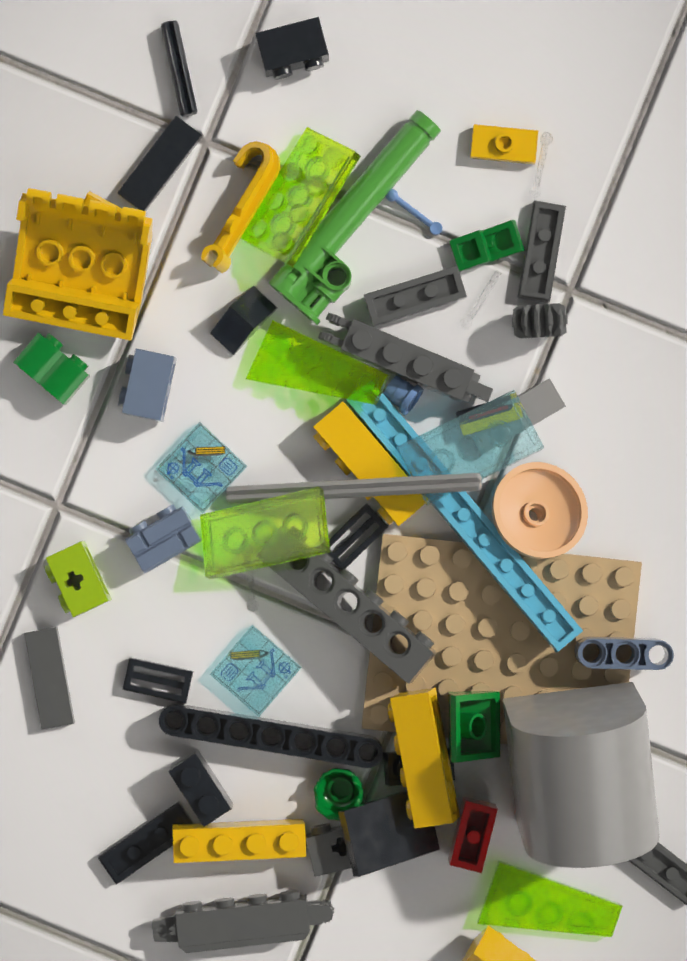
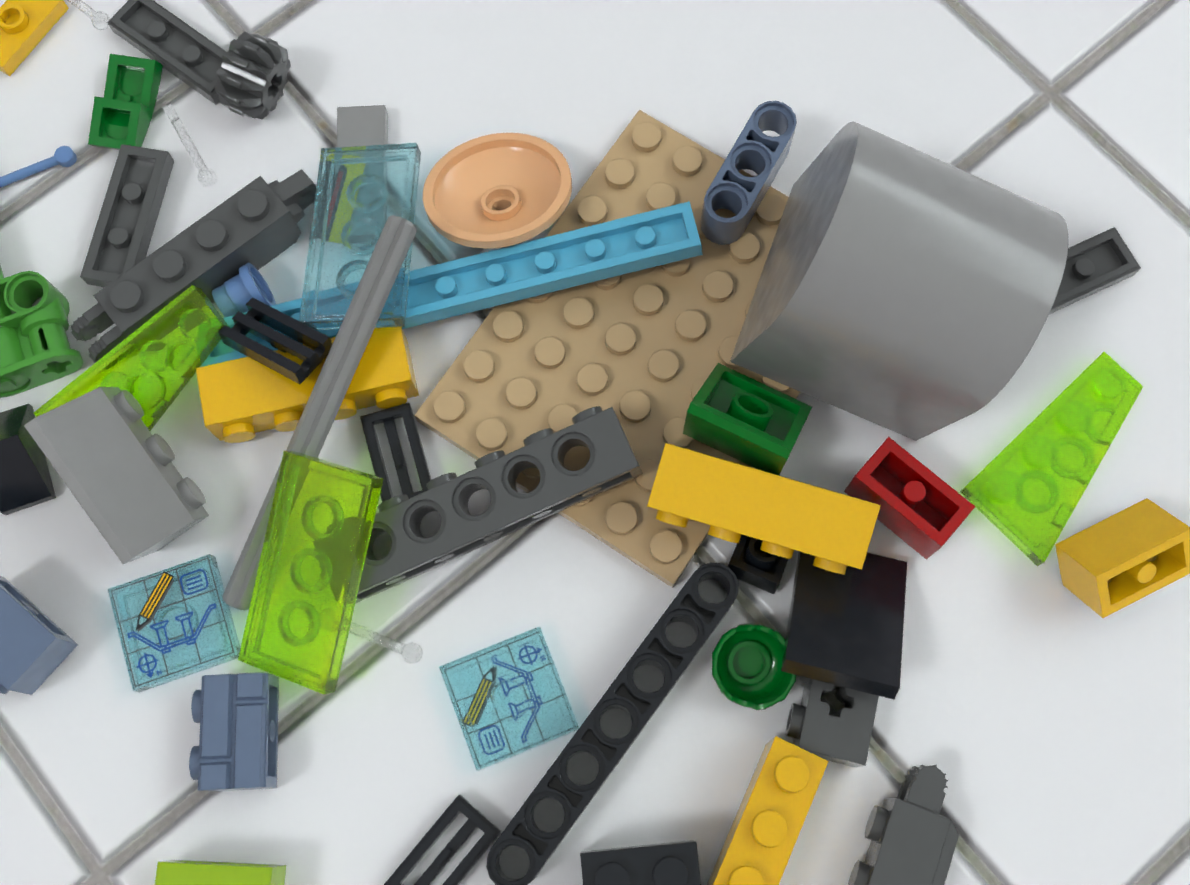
camera: 65 degrees left, 15 degrees down
(263, 401) = (119, 471): none -> light grey slope
(383, 413) = (249, 322): none -> black tile

